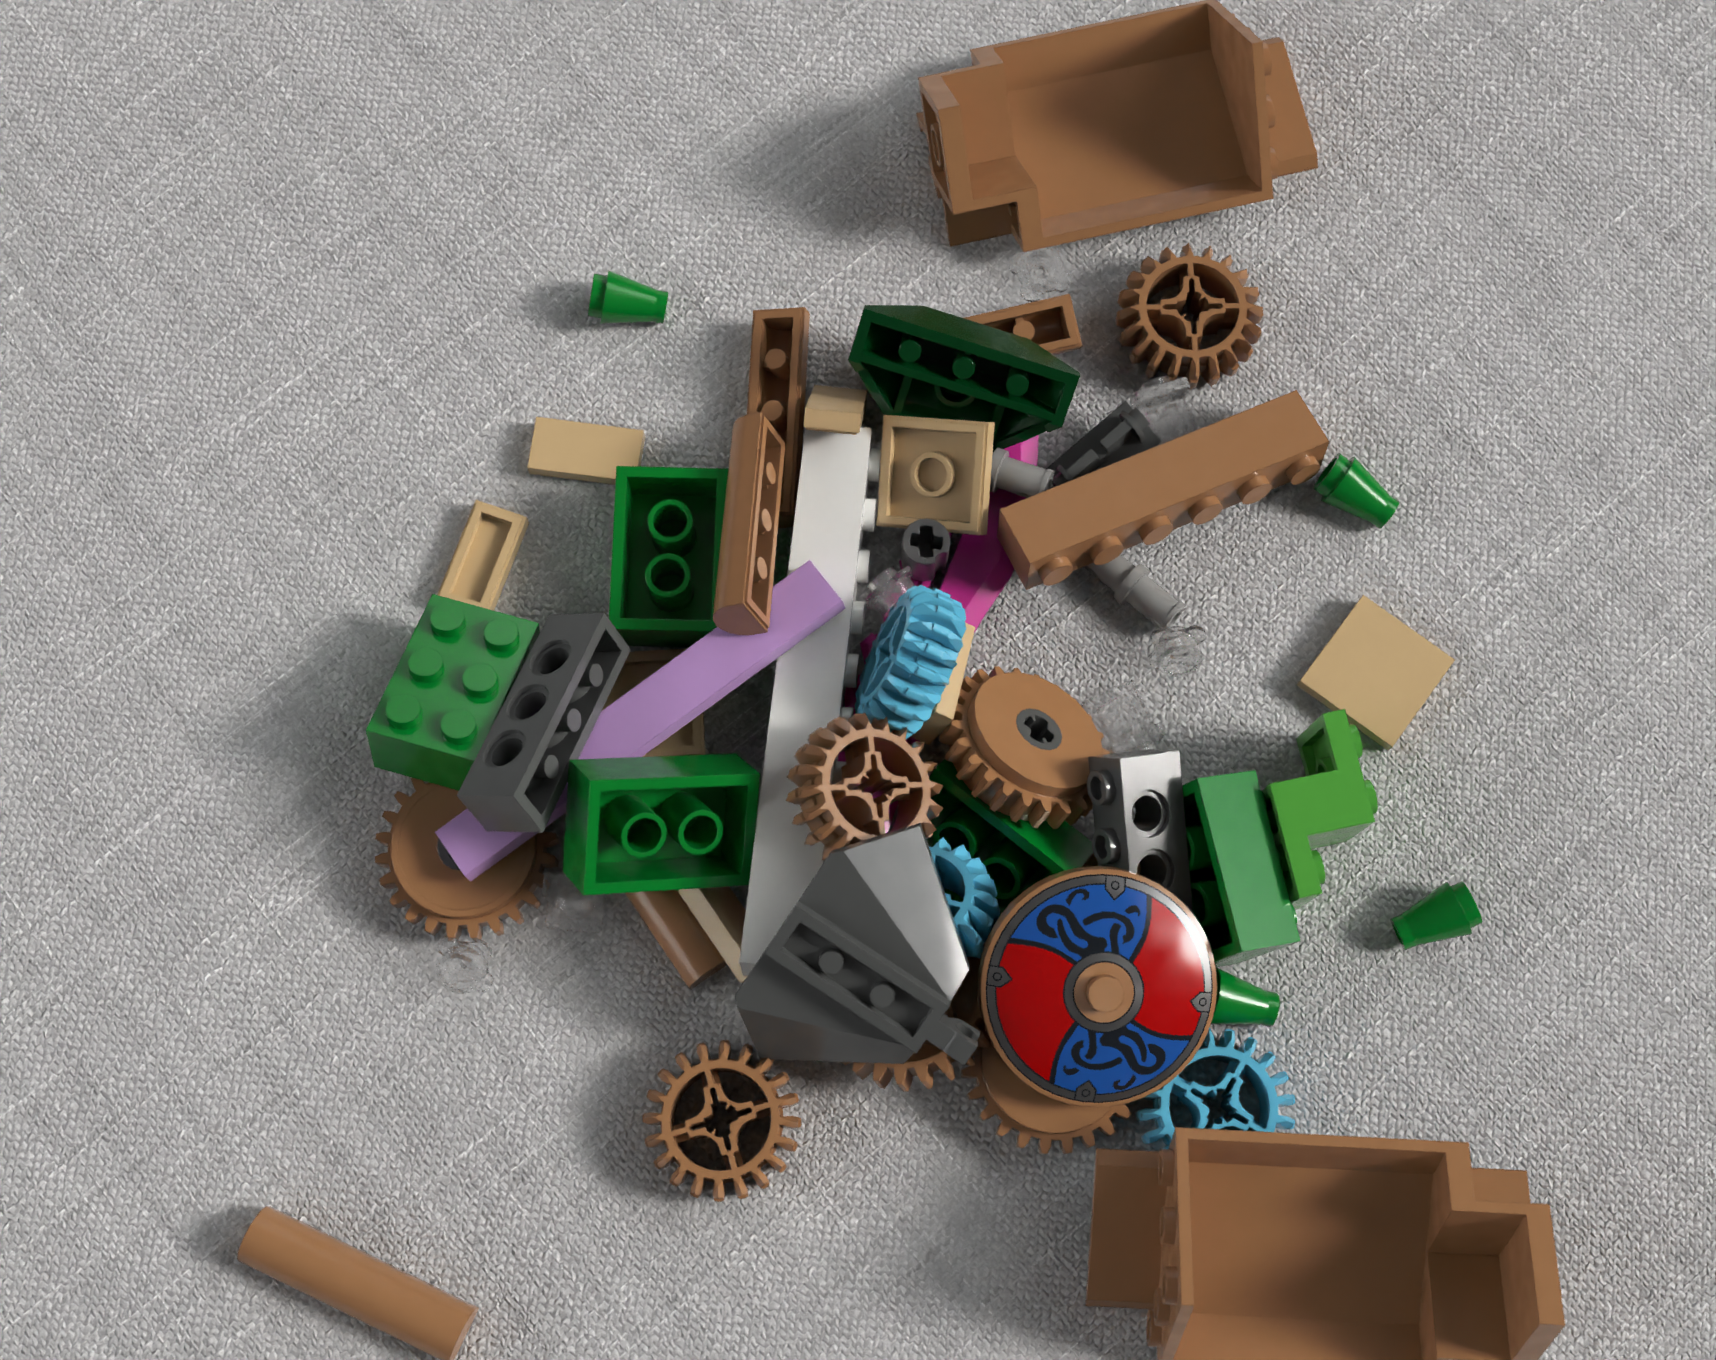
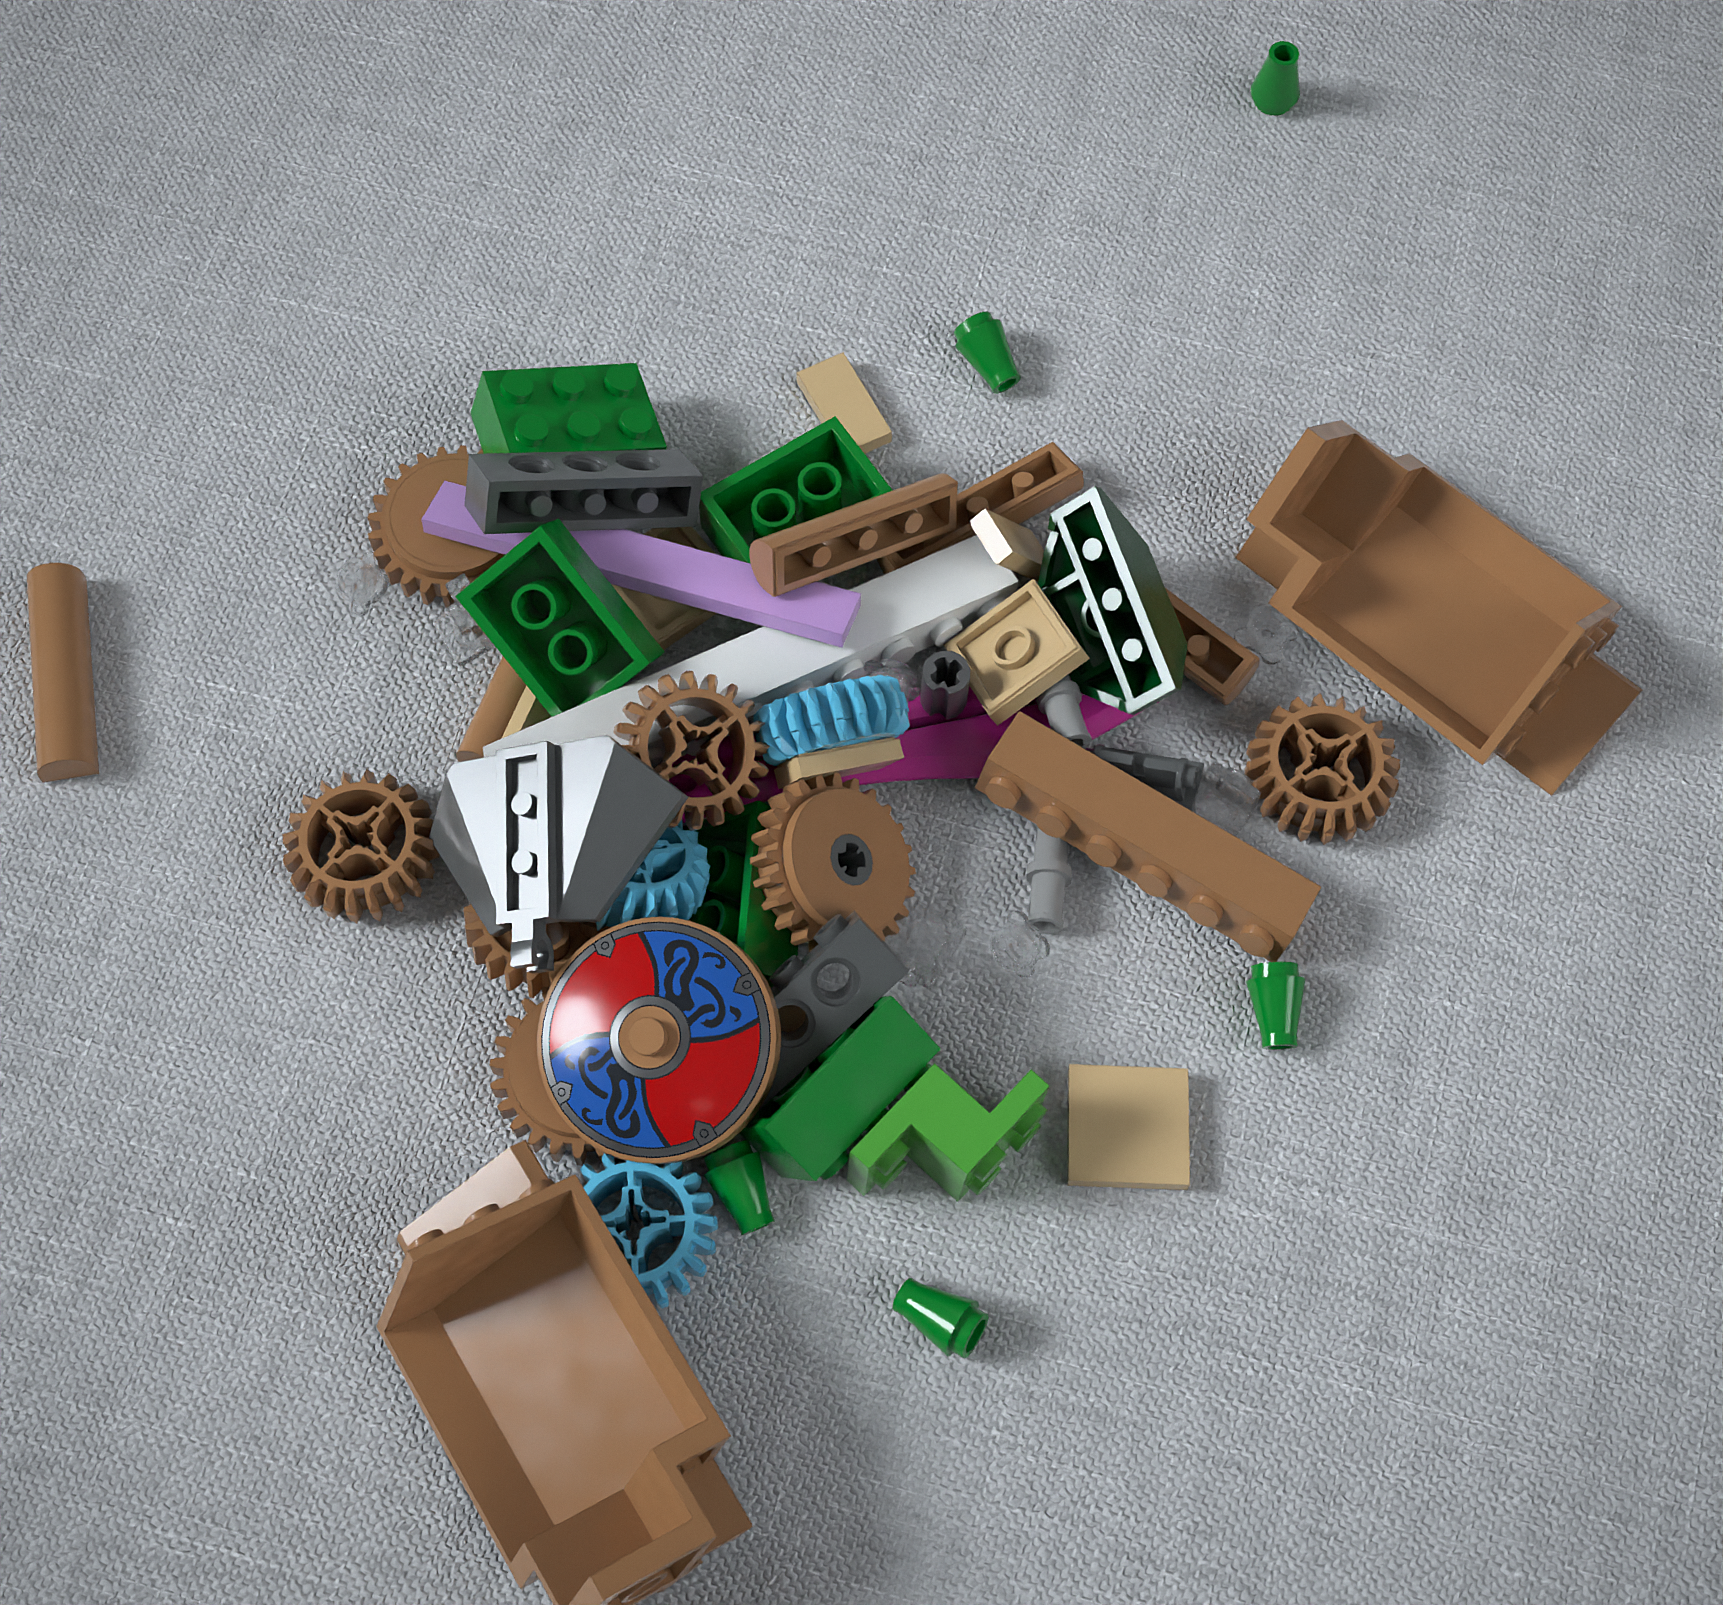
camera: 55 degrees right, 10 degrees down
(484, 555) = (701, 393): tan tile -> none

